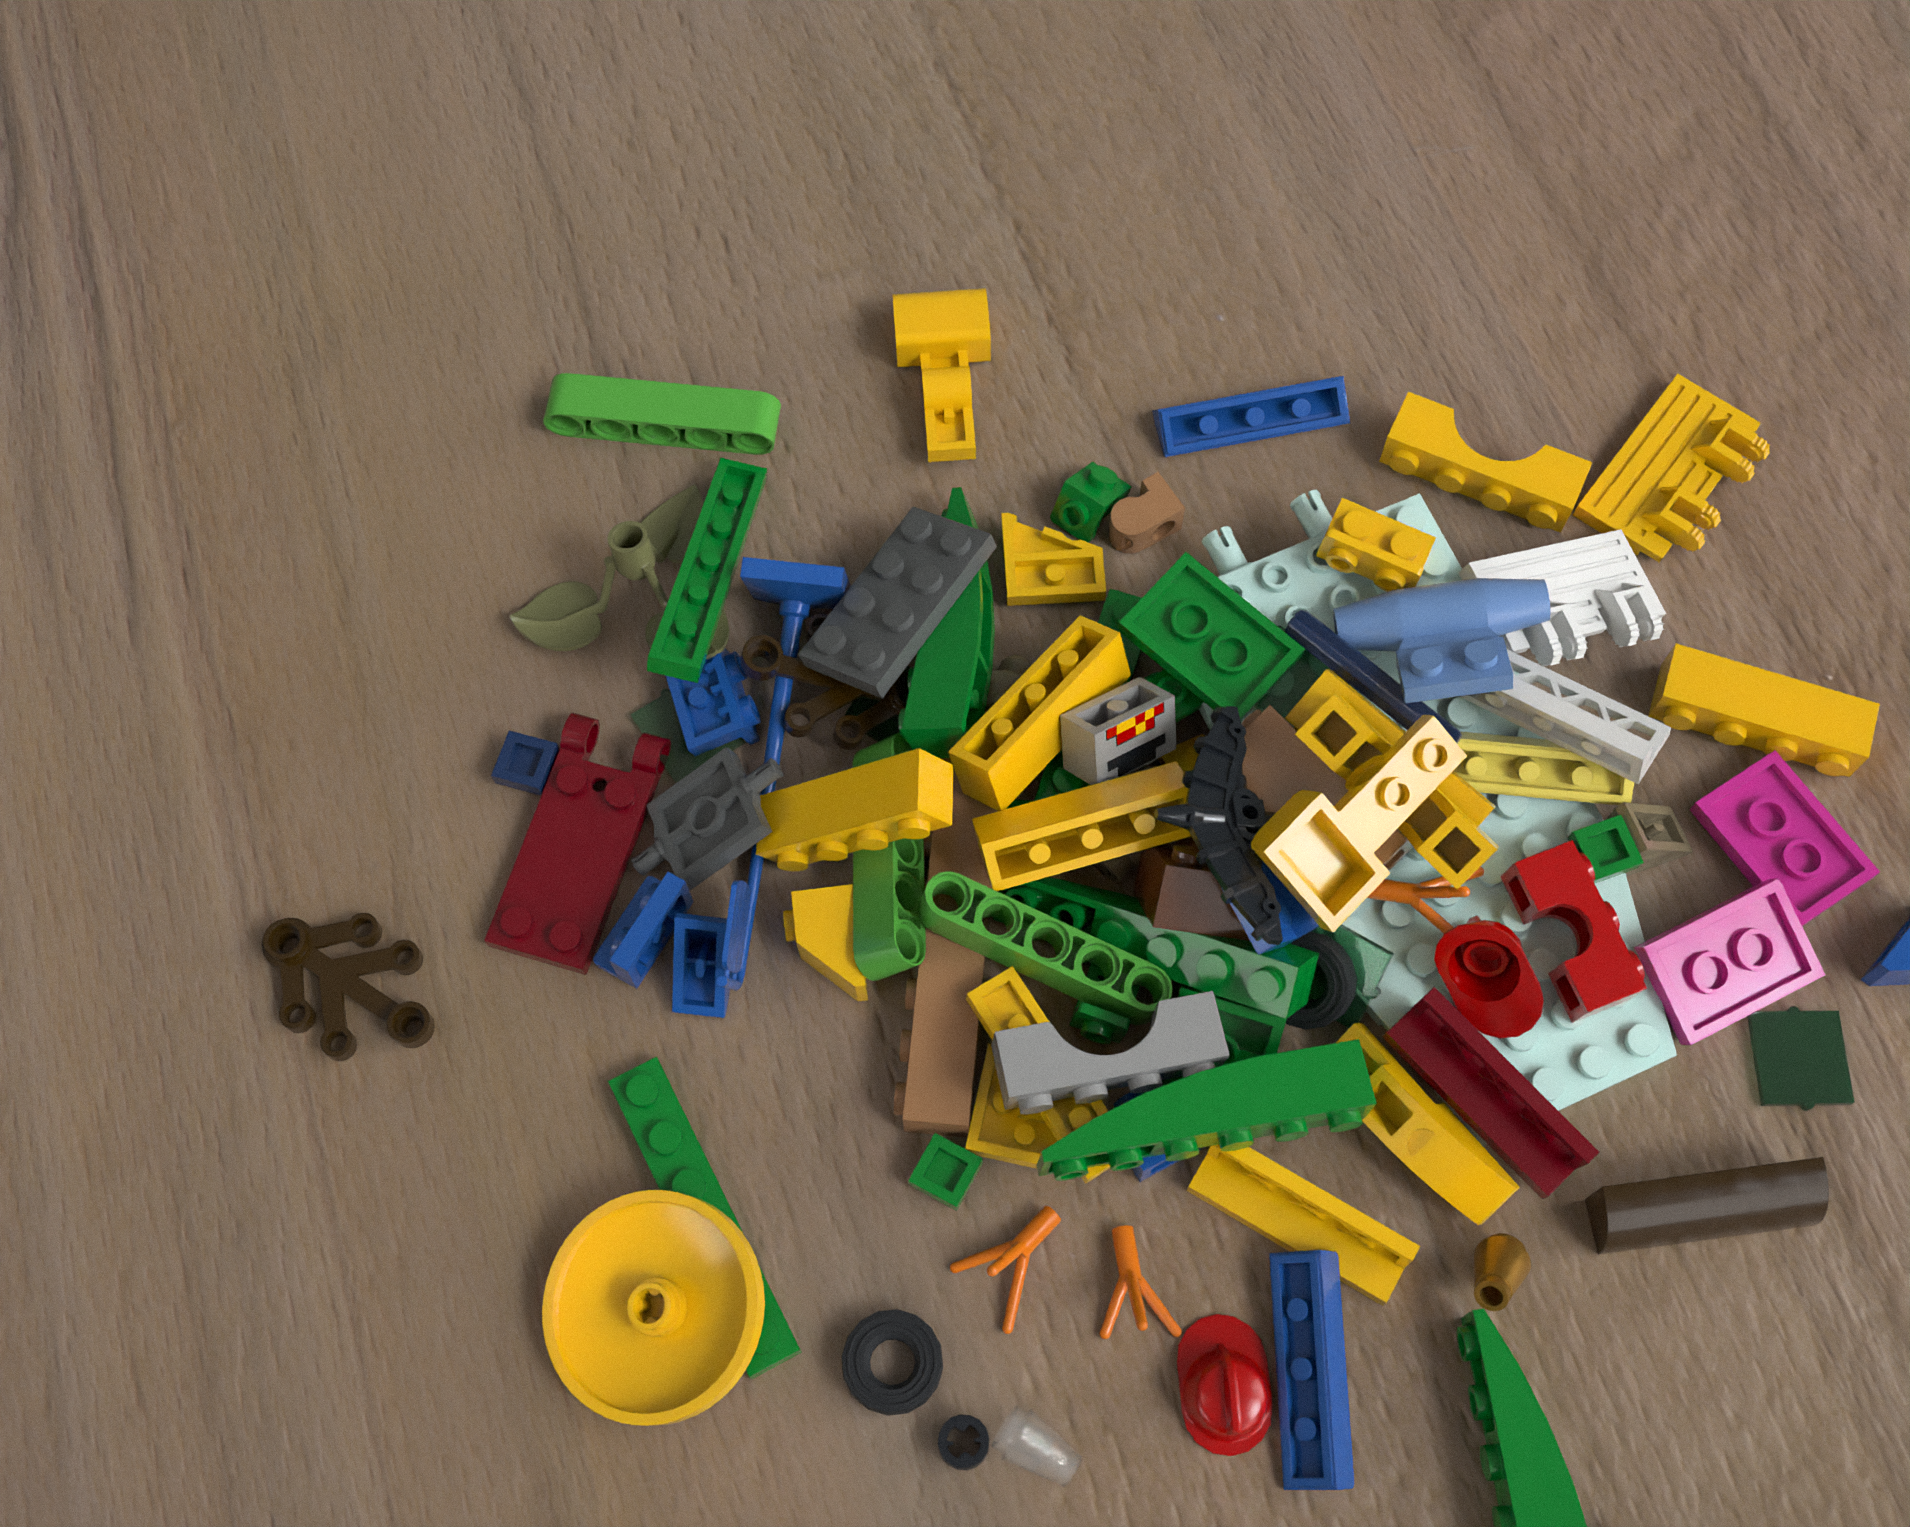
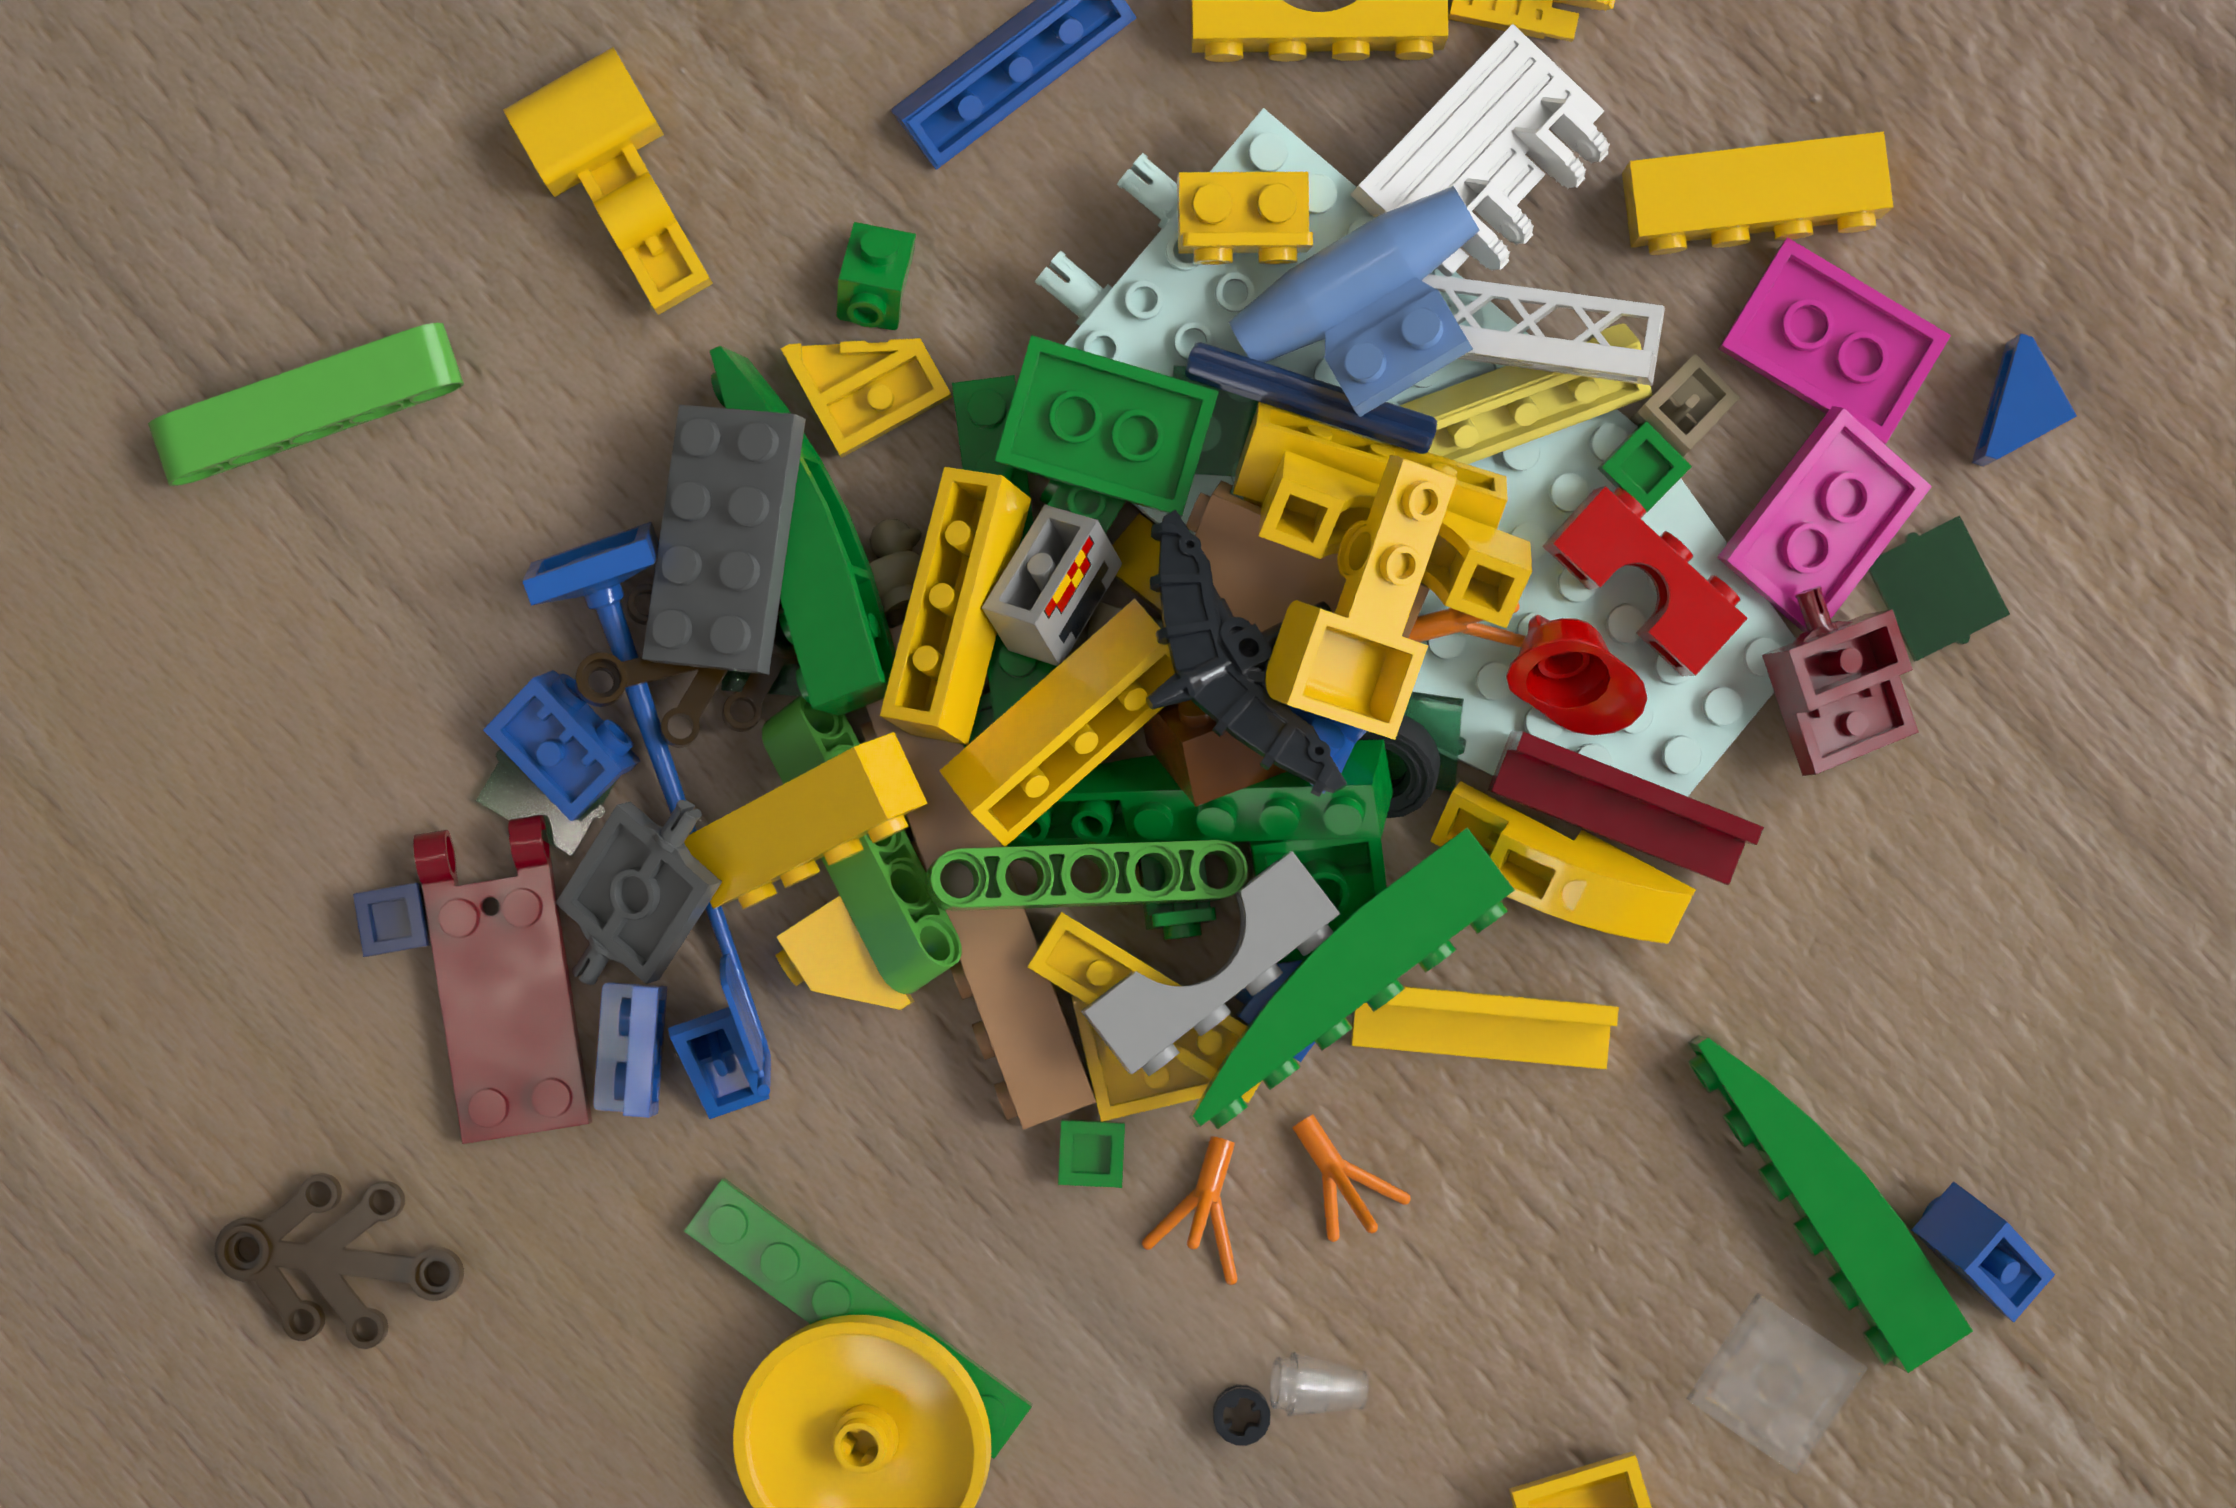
camera: 25 degrees left, 20 degrees up
(567, 612) = (494, 683): olive plant -> none
(707, 571) = (481, 599): green plate -> none
(857, 1354) = (1121, 1410): black tyre -> none
(1147, 518) = (950, 278): medium nougat leg -> none
(1224, 1385) = (1476, 1227): red piece -> none
(1311, 1371) = (1558, 1174): blue slope -> none
(1499, 1270) = (1708, 985): pearl gold cone -> none
(1699, 1086) = (1841, 685): none -> dark red plate
(1709, 1205) = (1896, 808): dark brown brick -> none

